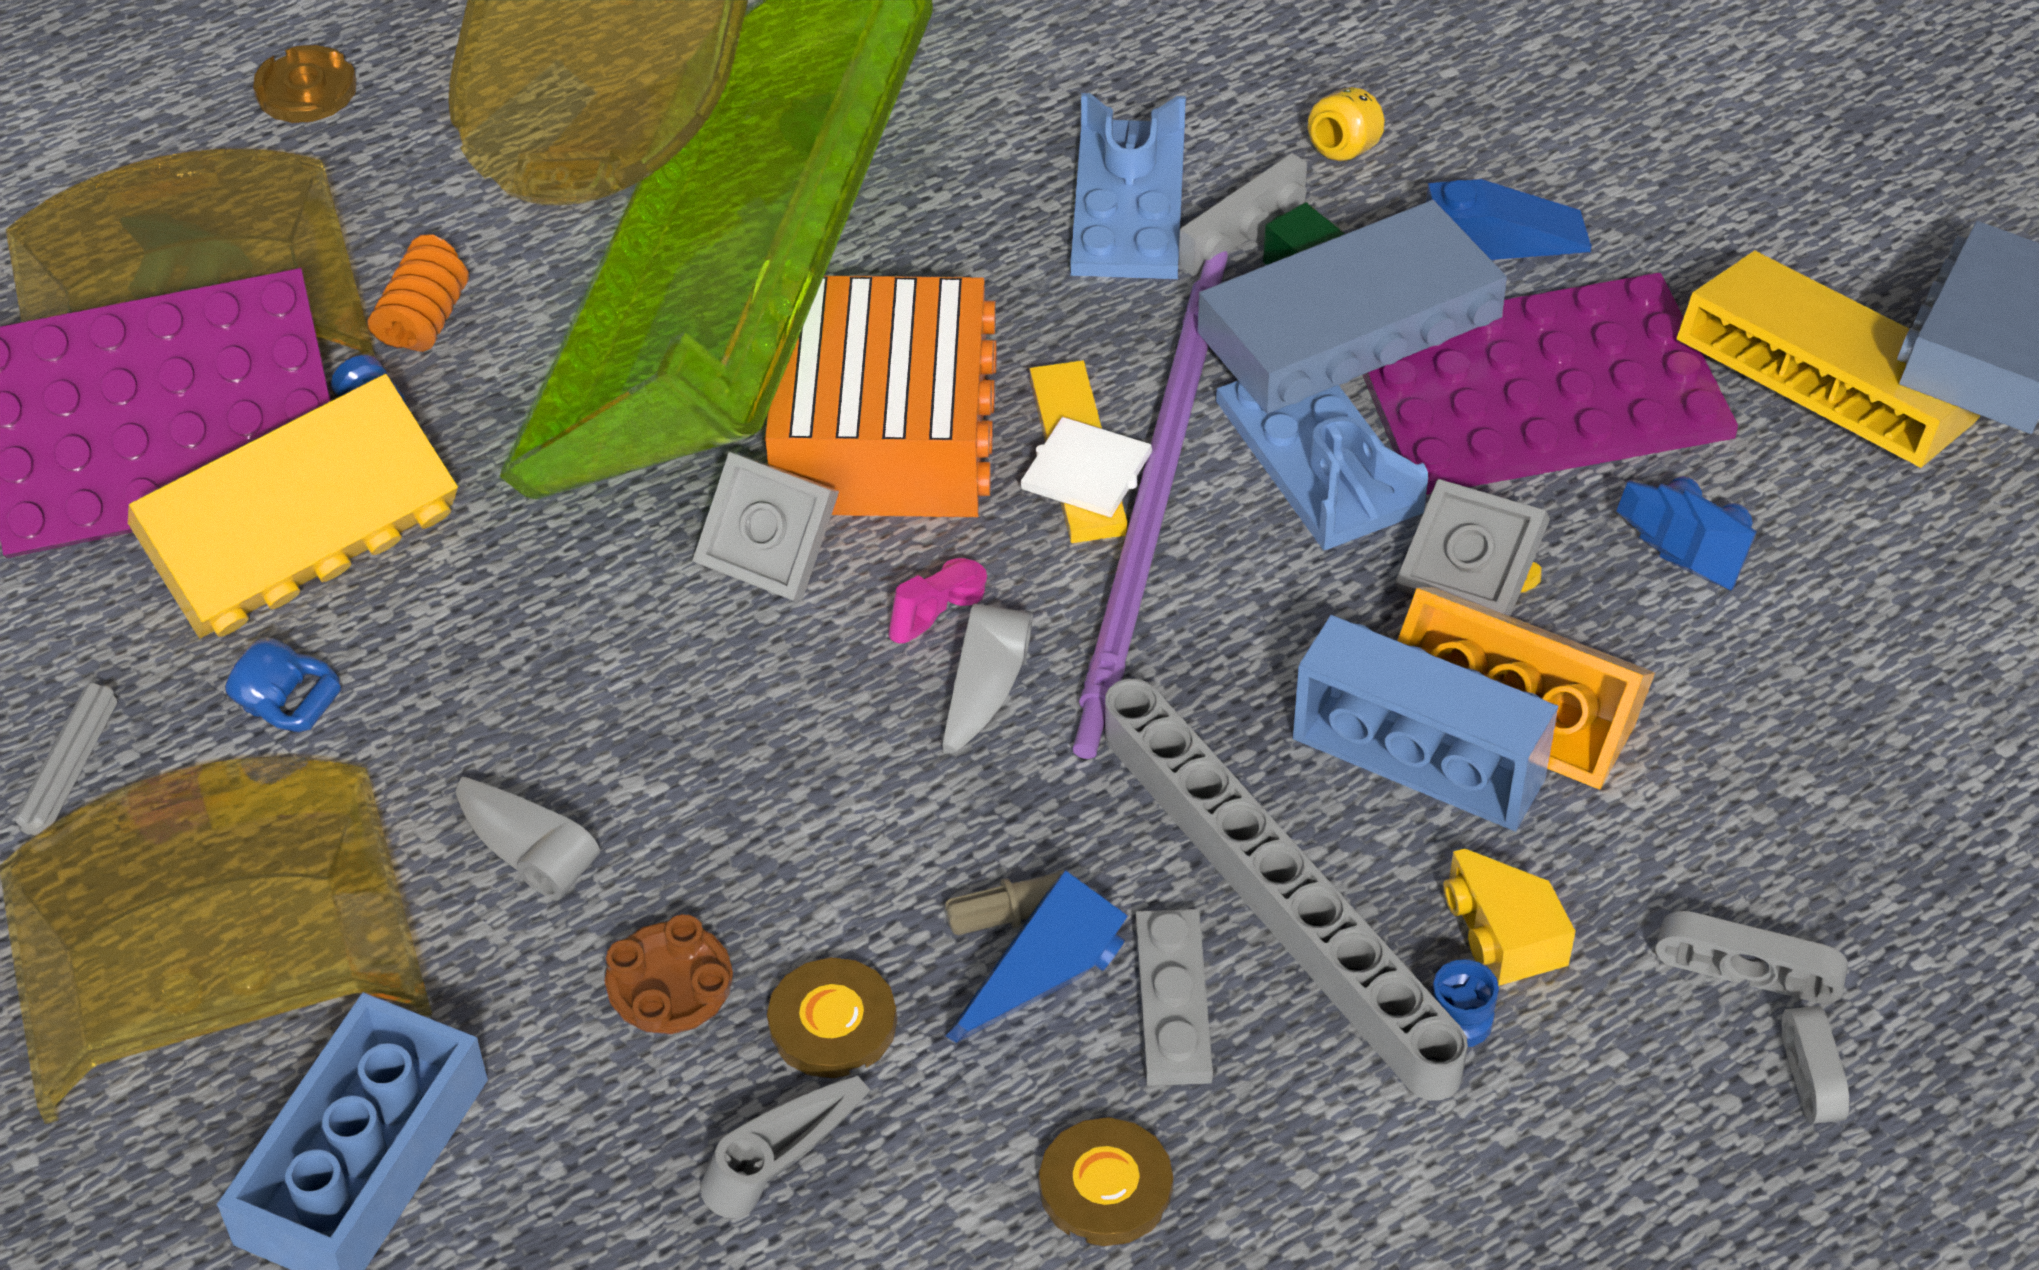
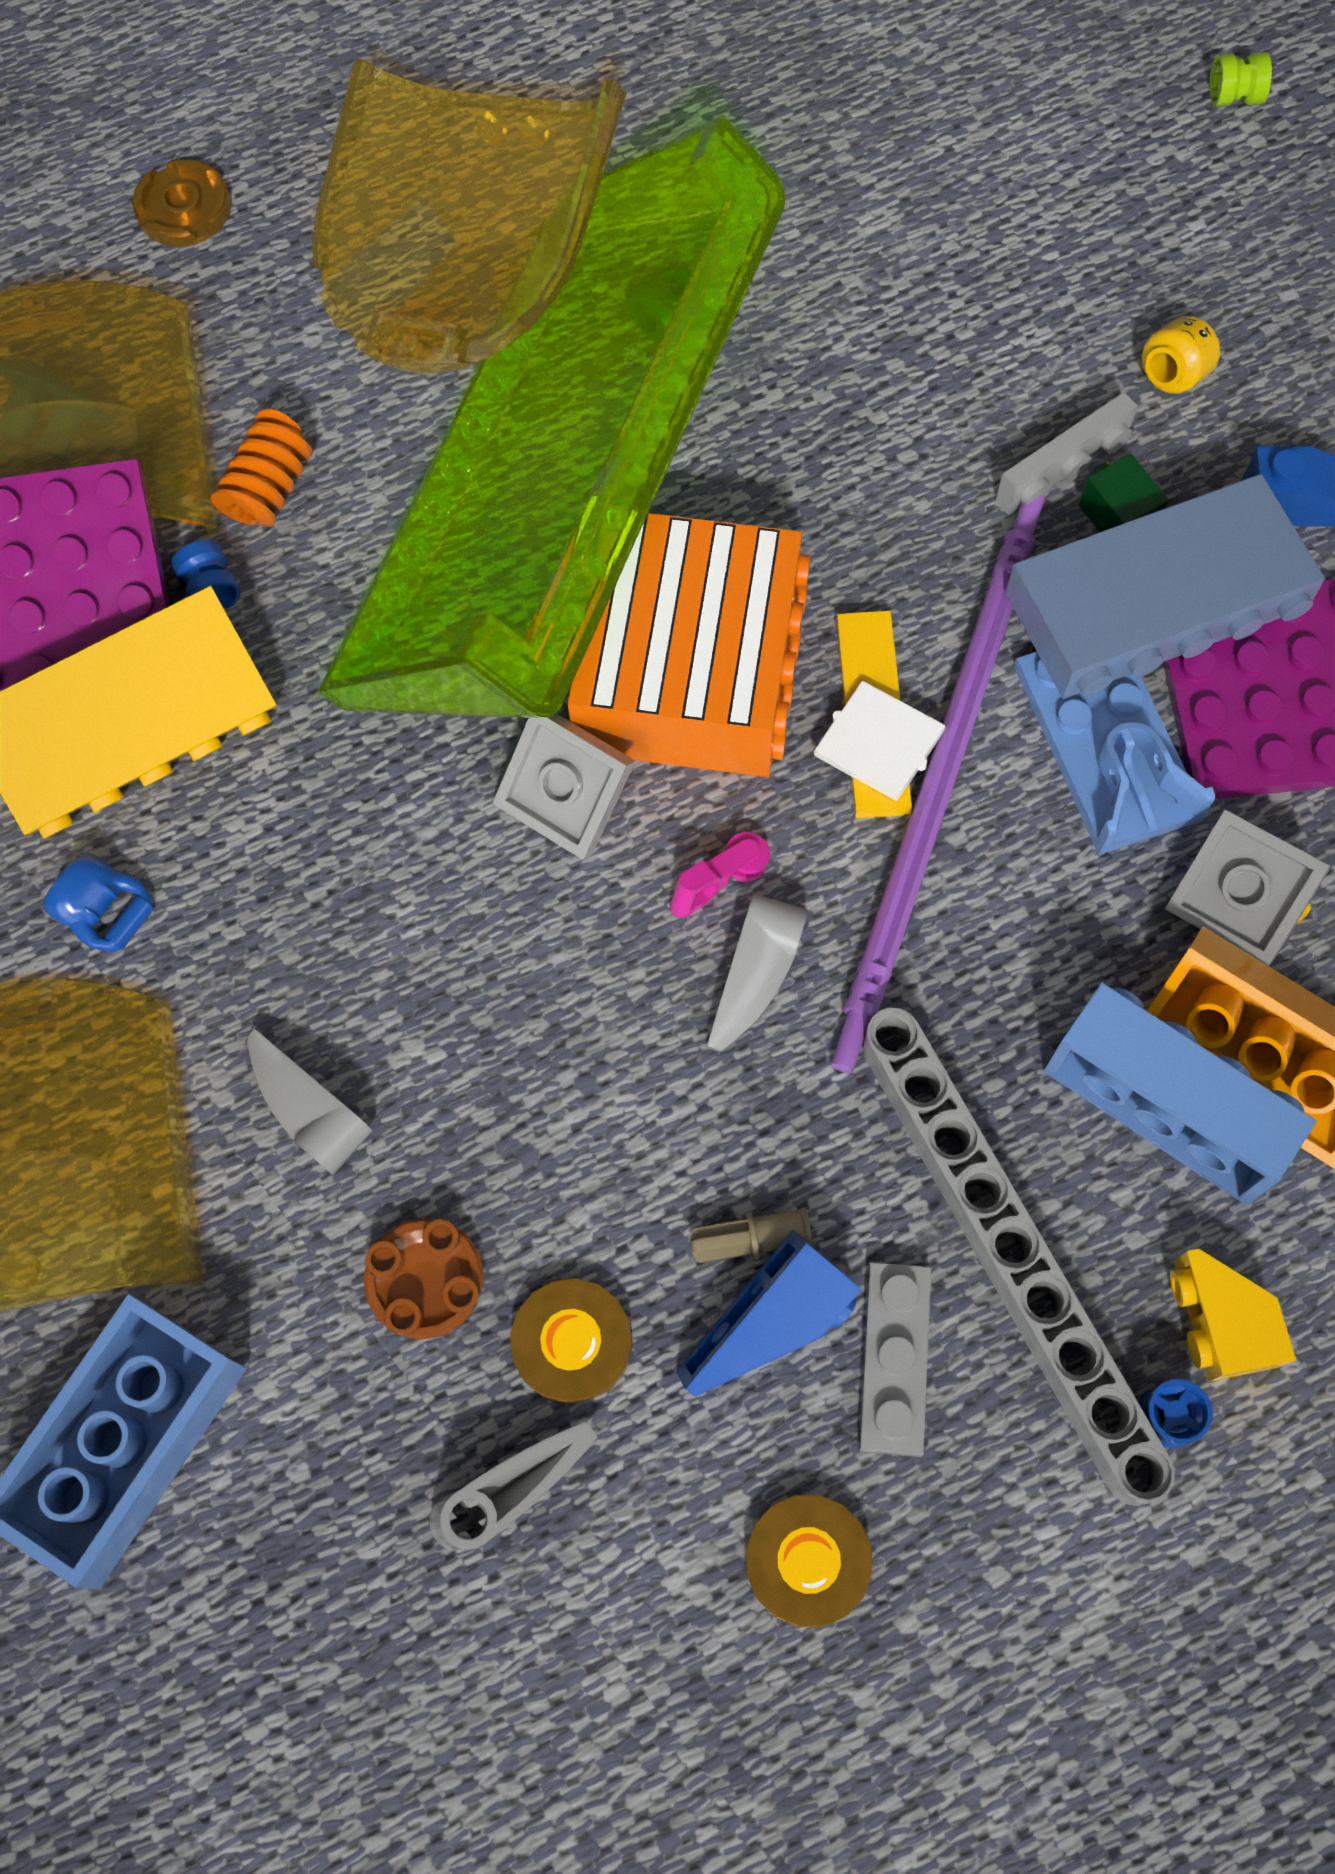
camera: 10 degrees right, 20 degrees up
(1128, 192) = (956, 415): medium blue plate -> none

